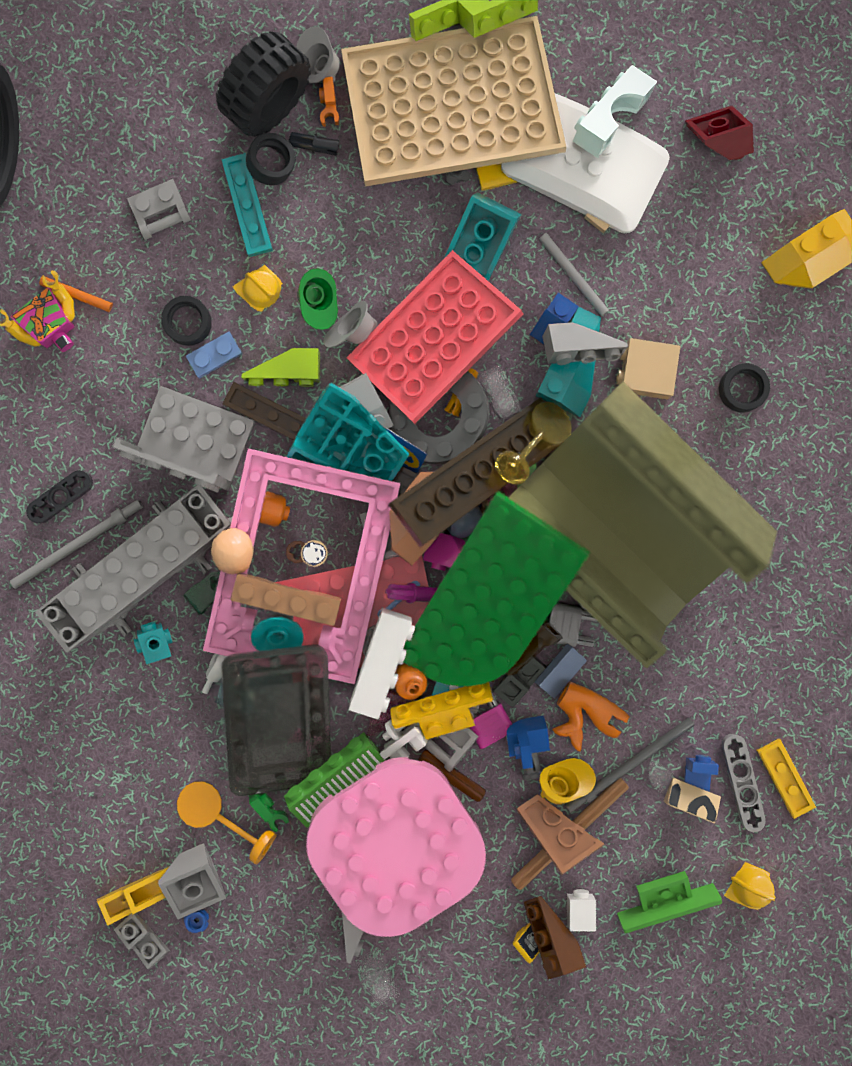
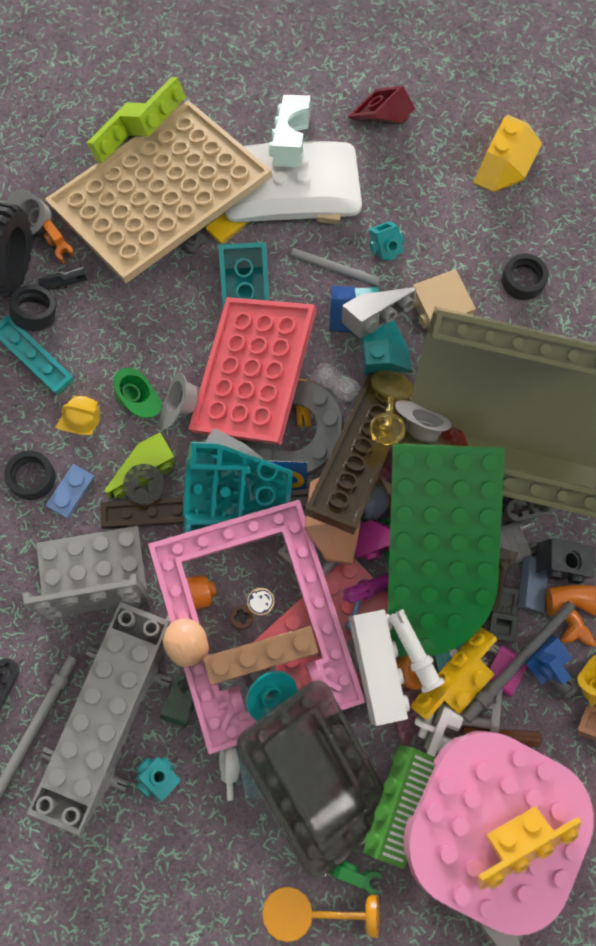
camera: 30 degrees left, 15 degrees down
(269, 396) = (155, 485): none -> clear smoke gear
(405, 867) = (522, 842): none -> yellow bracket
(416, 682) = (421, 662): none -> white pin
(454, 740) = (485, 698): none -> dark grey bar
(554, 472) = (422, 423): none -> light grey piece
(578, 507) = (455, 437): none -> clear red arm
(612, 673) = (565, 560): none -> black brick
(635, 278) = (386, 241): none -> teal brick

